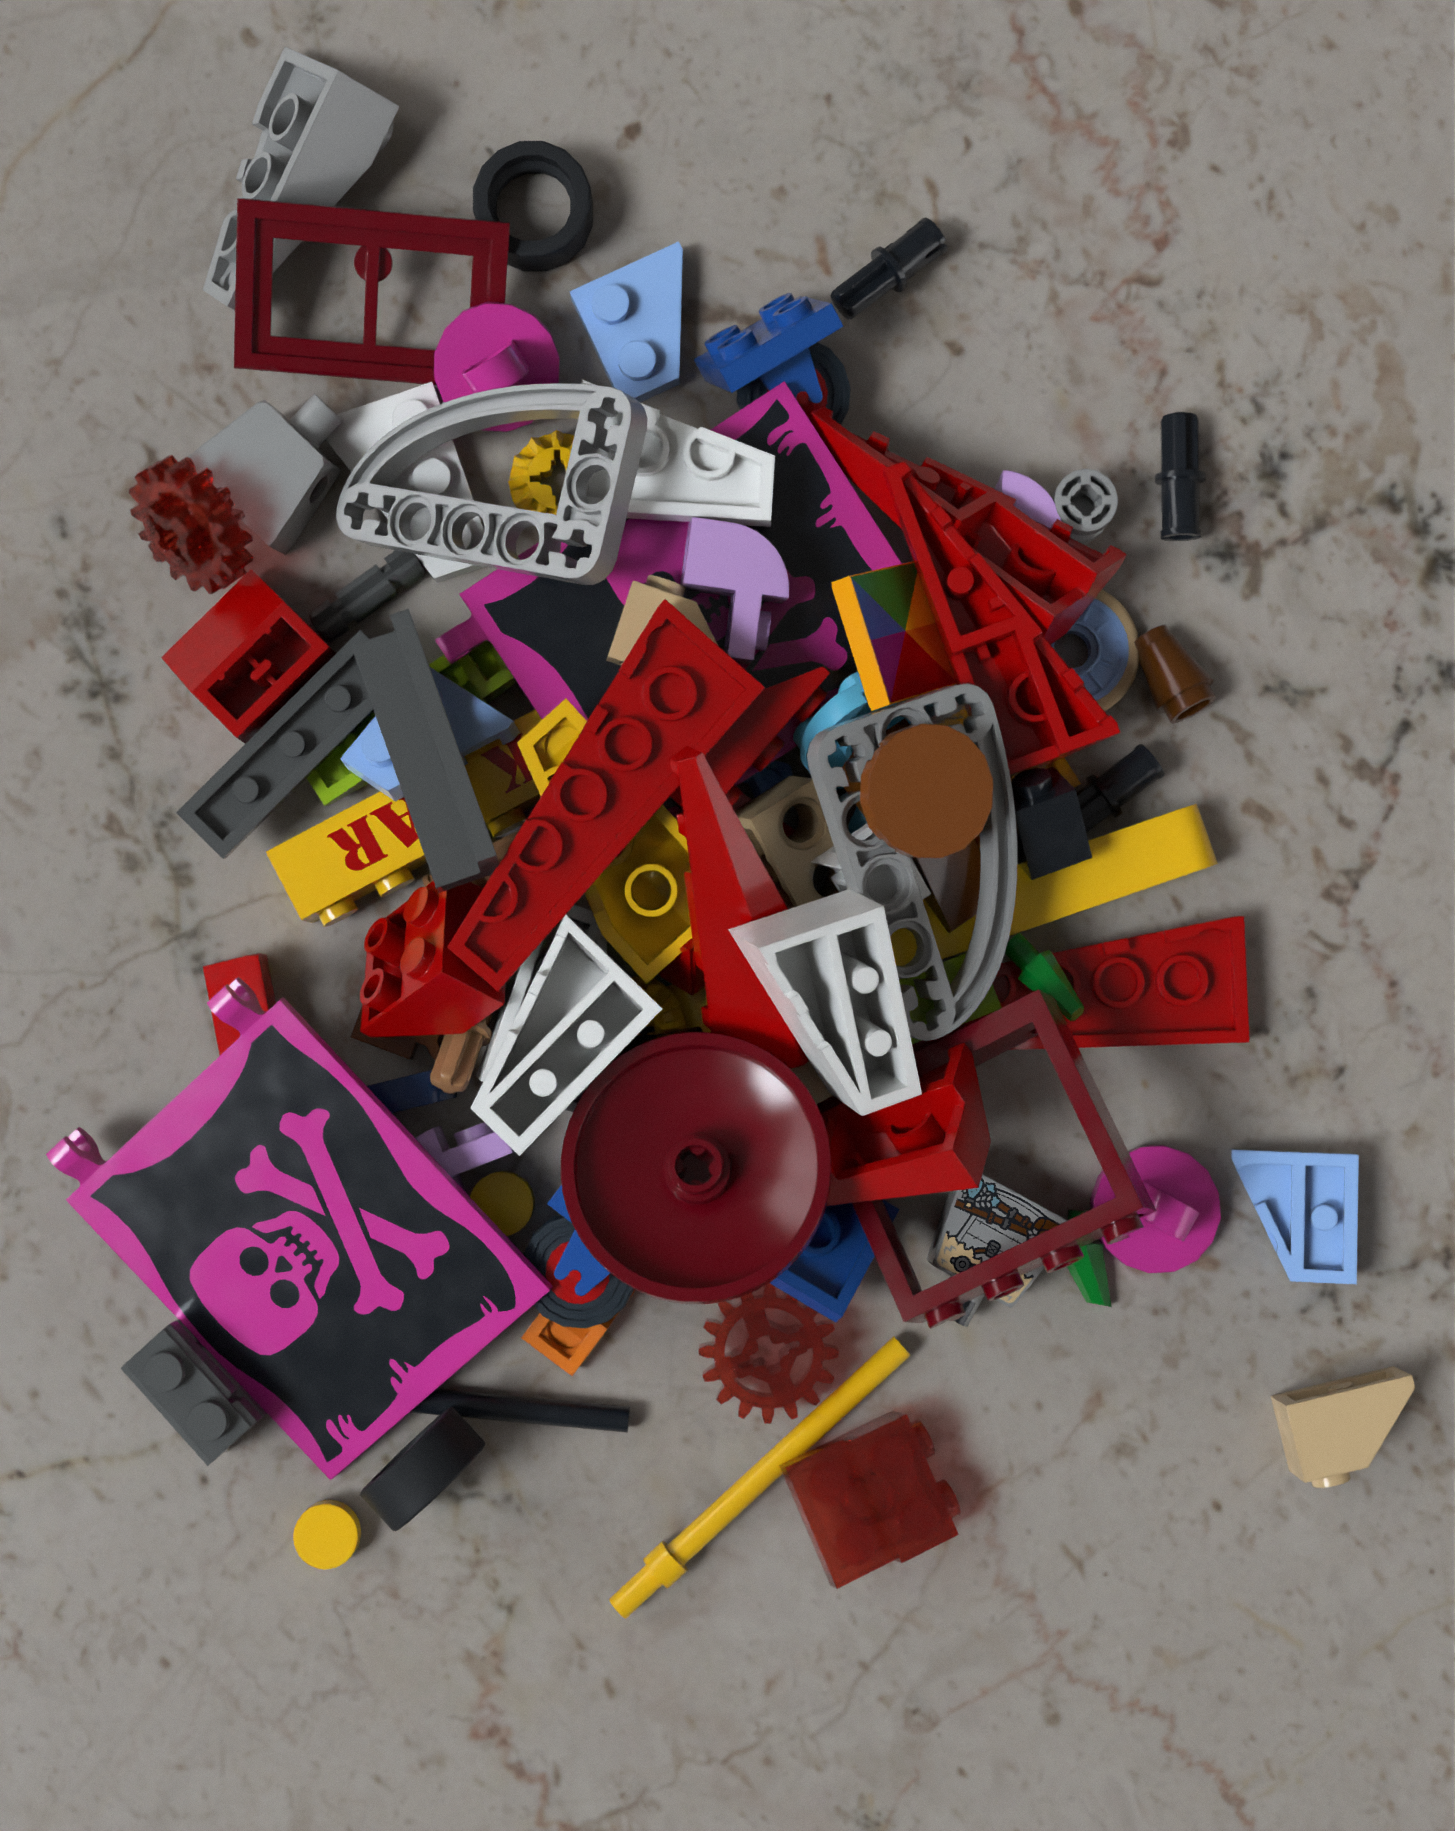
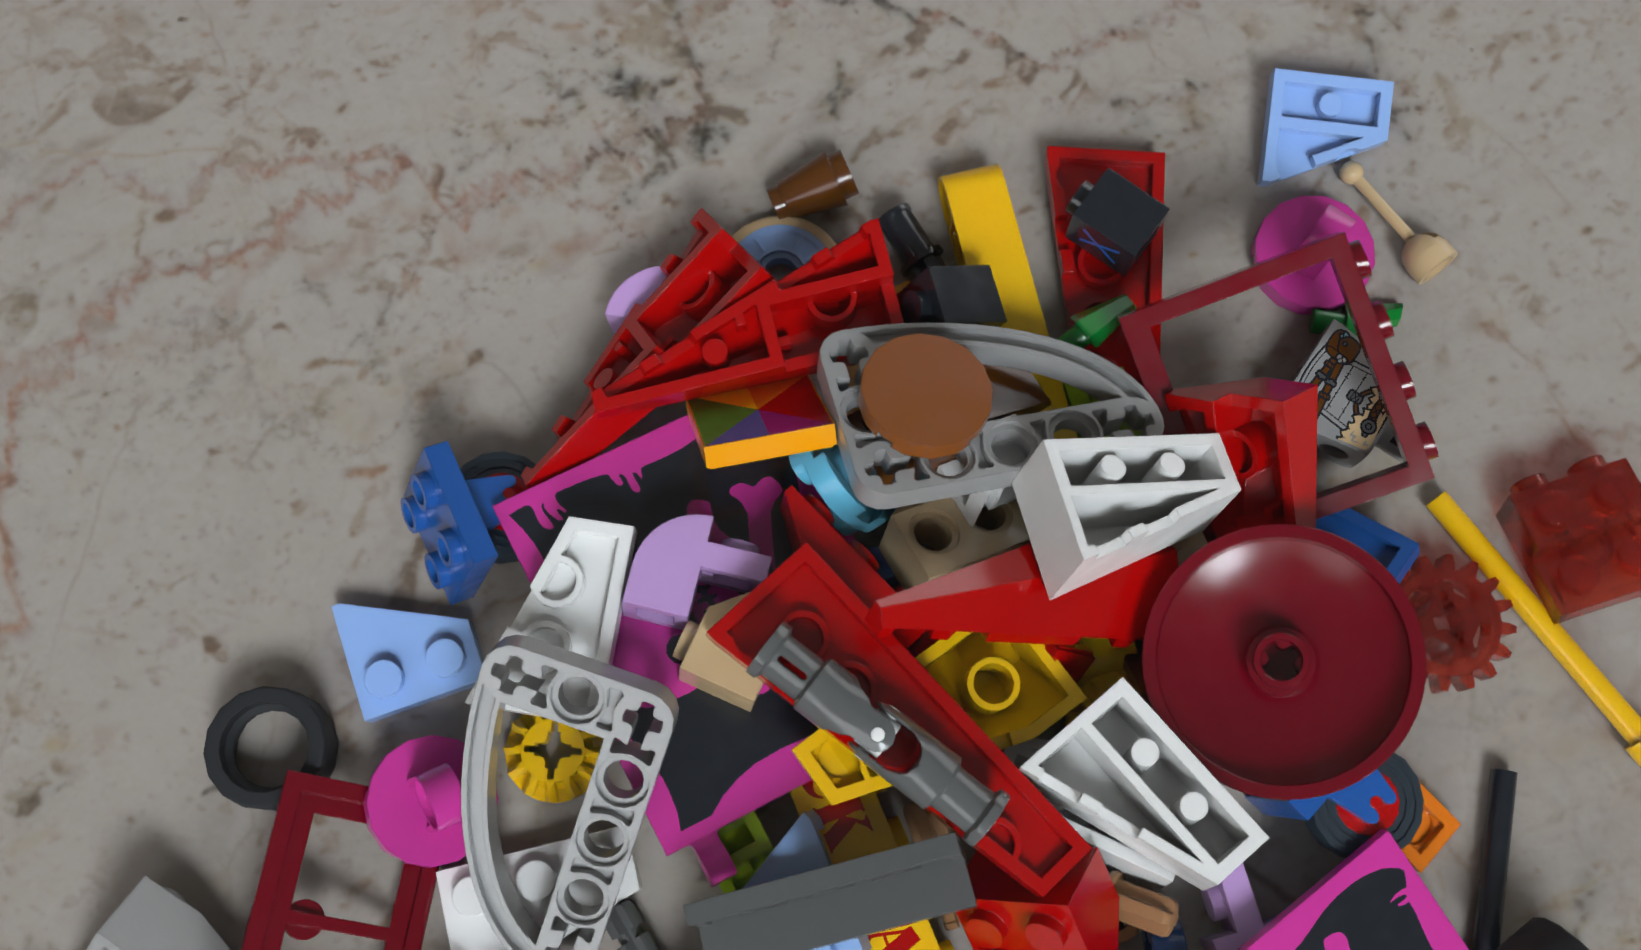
camera: 80 degrees left, 10 degrees down
(505, 1200) = (1281, 877): yellow tile -> none
(600, 738) = (836, 702): none -> dark grey piece
(890, 268) = (389, 404): black axle -> none
(1086, 518) = (647, 256): light grey wheel -> none
(1159, 987) = (1114, 220): none -> black brick
(1168, 1325) = (1423, 253): none -> tan hinge
(1180, 477) = (628, 163): black axle -> none
(1339, 1423) = (1517, 110): tan slope -> none

